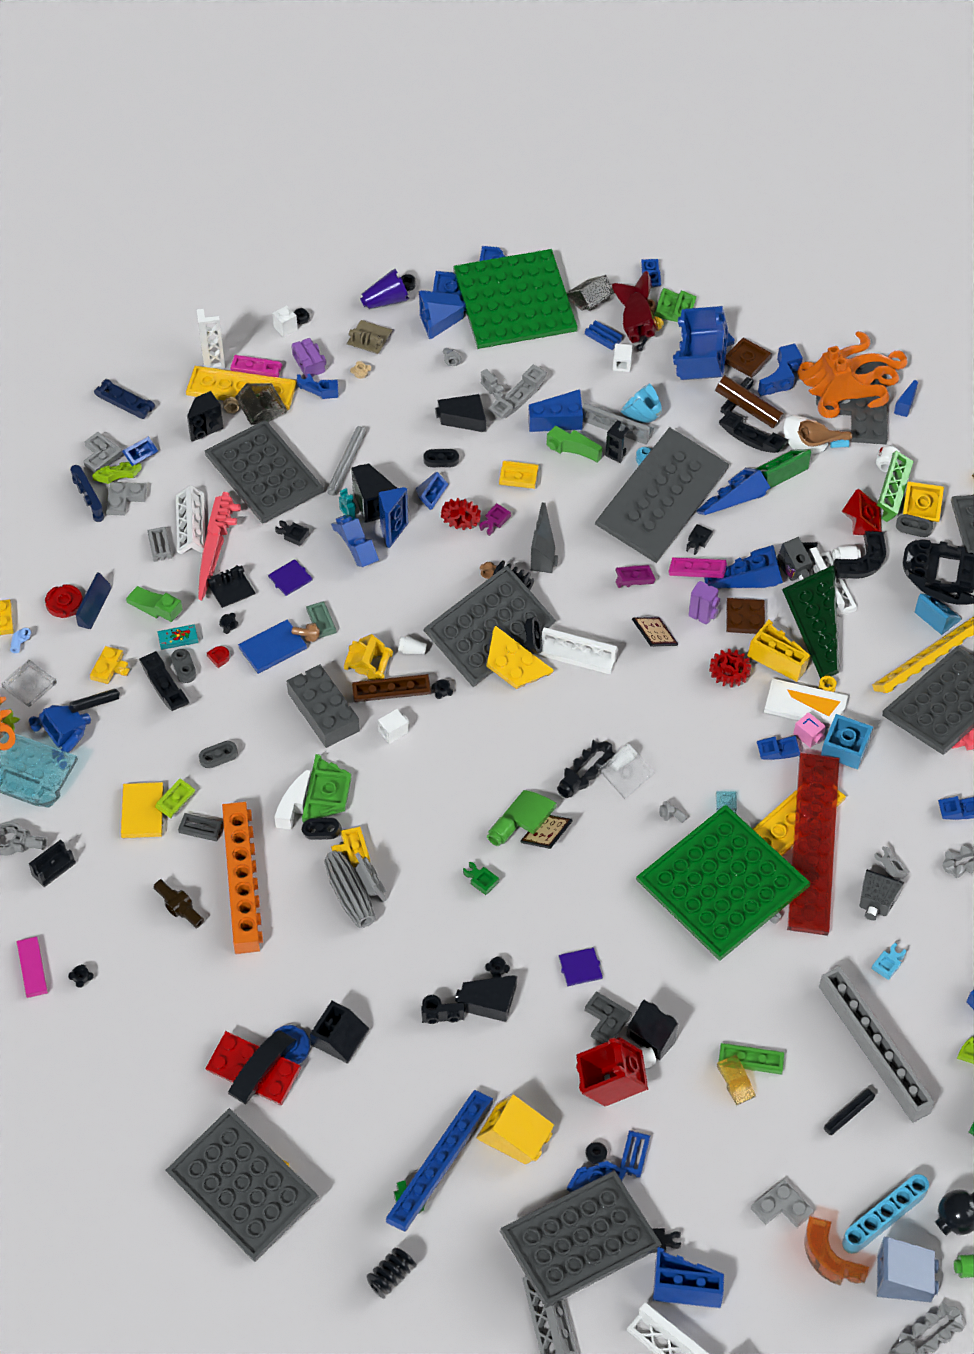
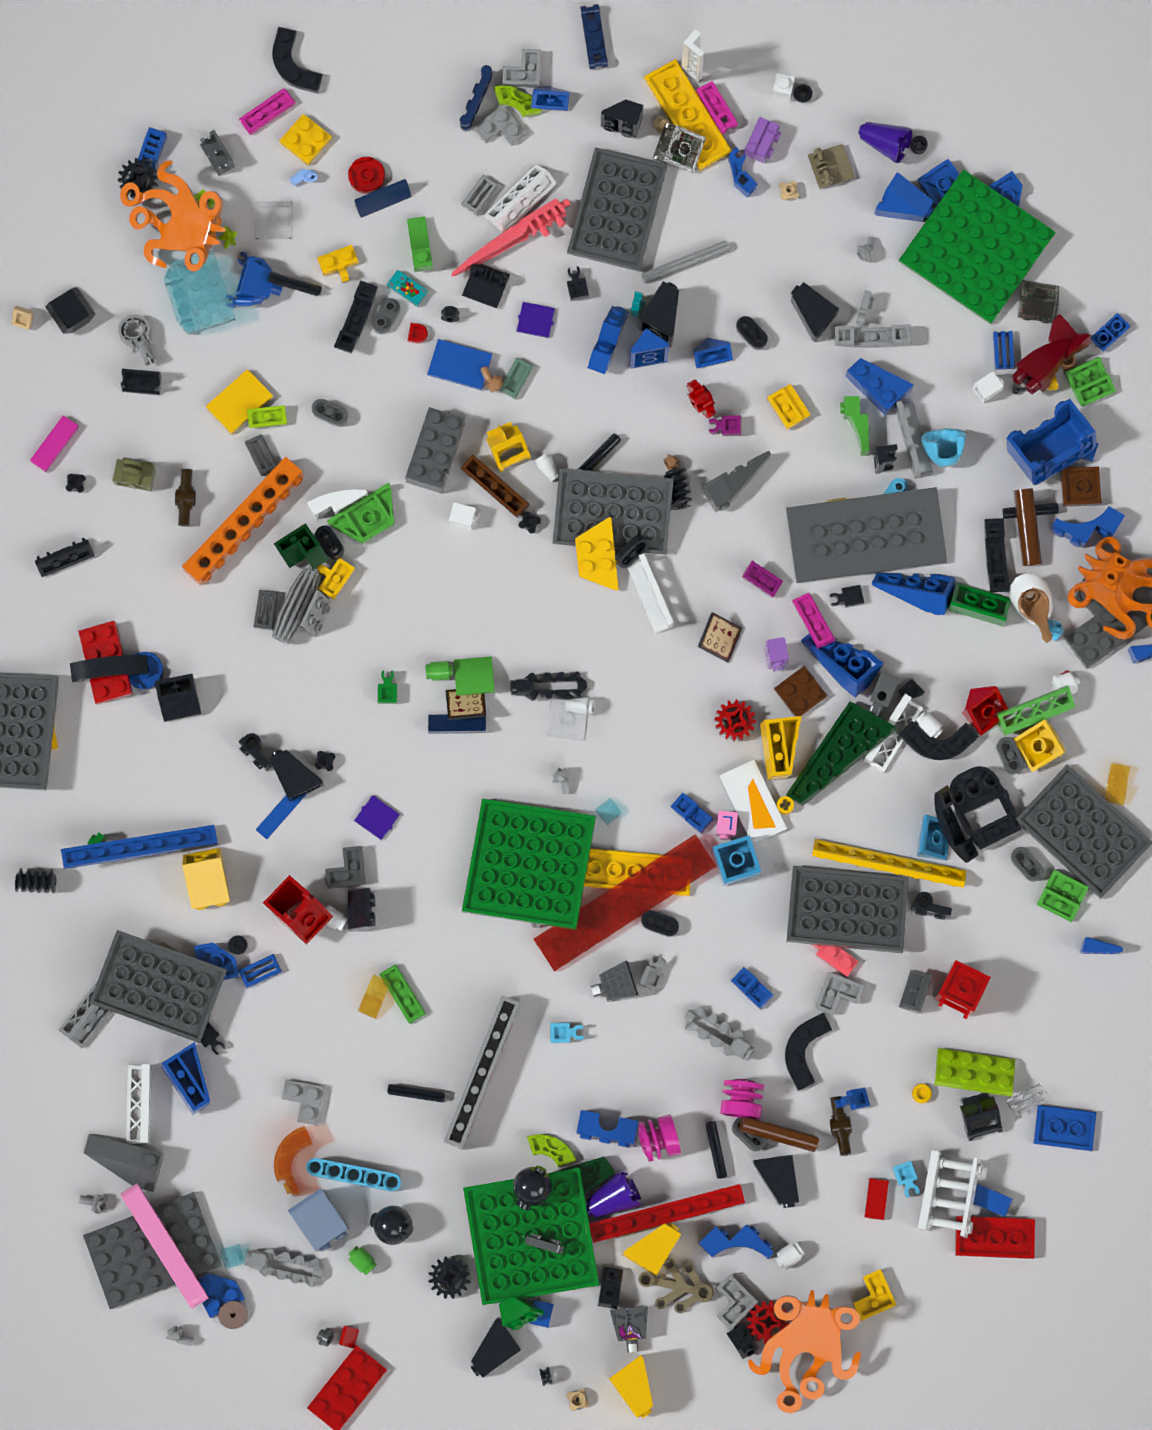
camera: 50 degrees right, 25 degrees up
(120, 924) = (134, 474): none -> olive brick
(134, 1030) = (64, 557): none -> black plate
(305, 845) = (301, 545): none -> dark green brick
(338, 928) = (273, 610): none -> dark grey tile
(434, 603) = (601, 452): none -> black axle
(510, 1040) = (277, 816): none -> blue sticker
(553, 857) = (441, 725): none -> dark blue slope
(850, 830) = (660, 922): none -> black plate

